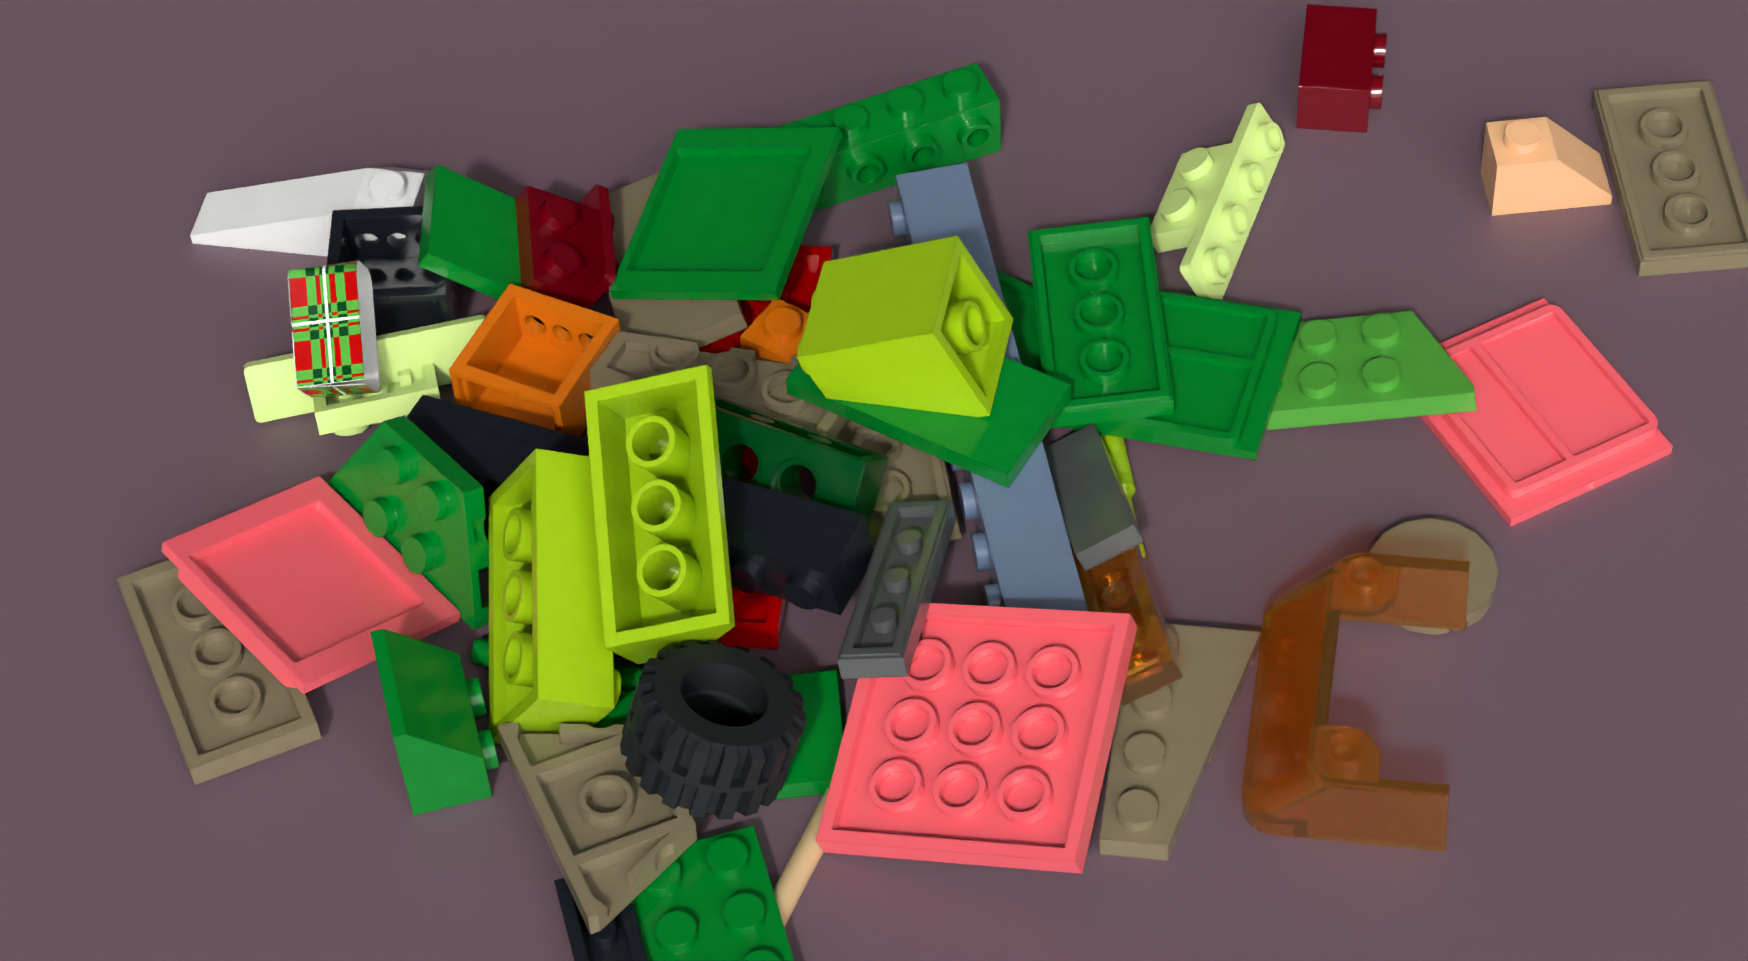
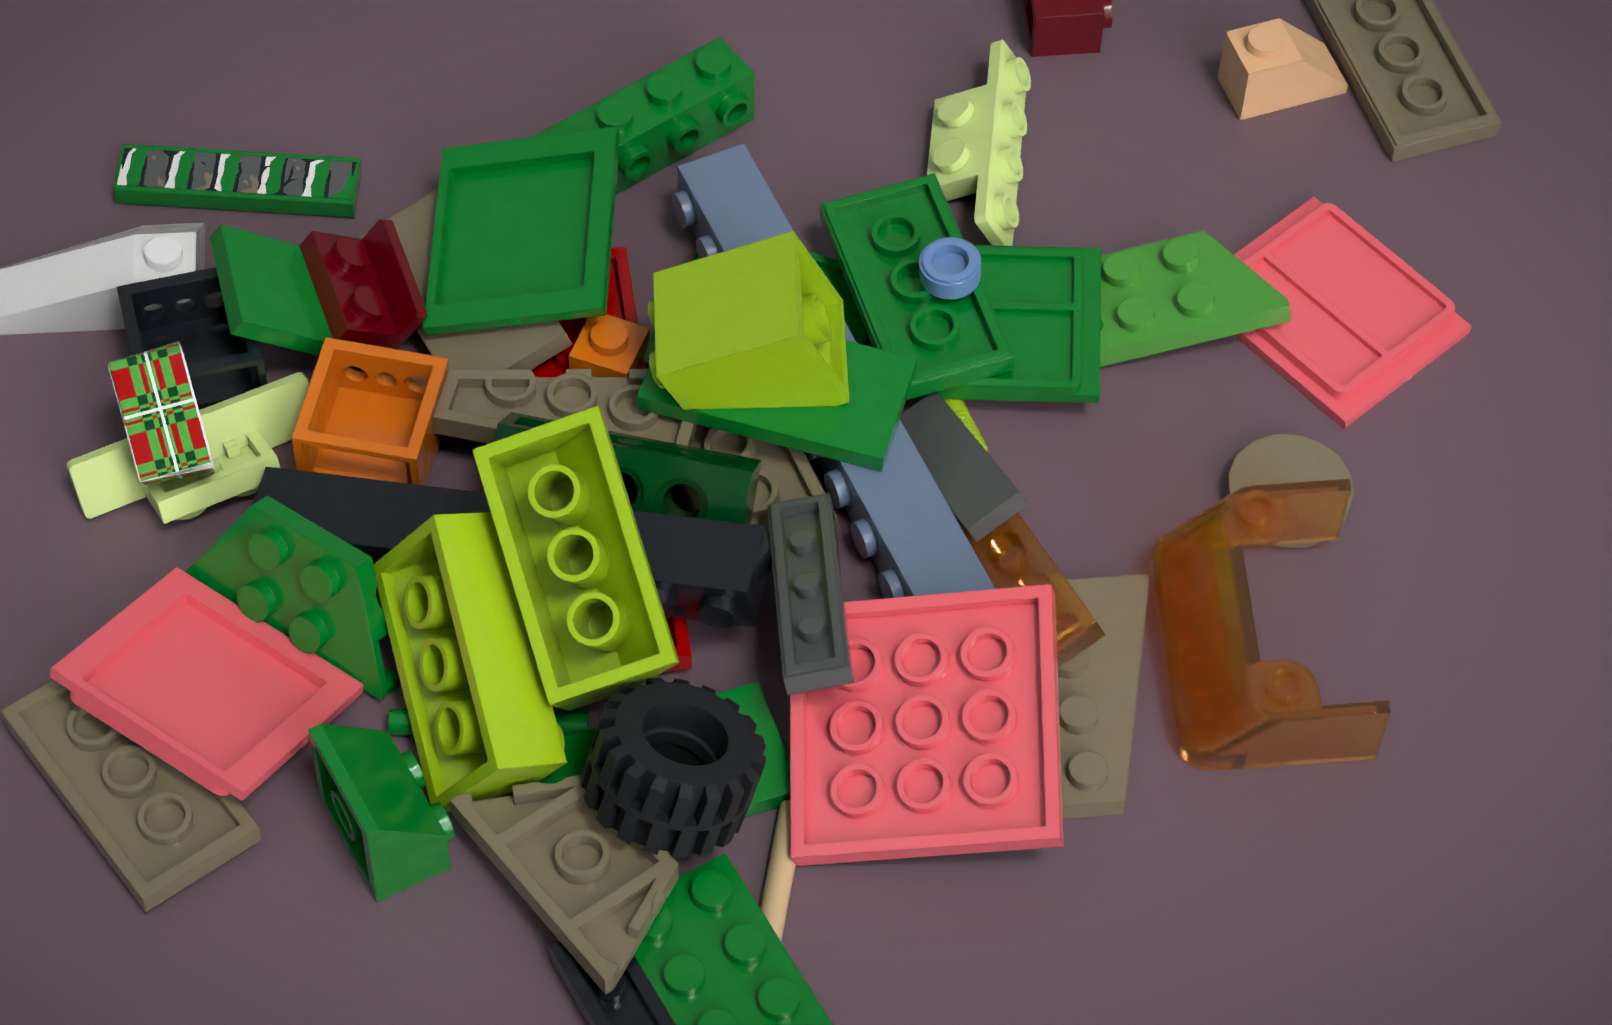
camera: 20 degrees left, 5 degrees up
(491, 138) = (238, 180): none -> tile
(1133, 306) = (950, 268): none -> medium blue tile

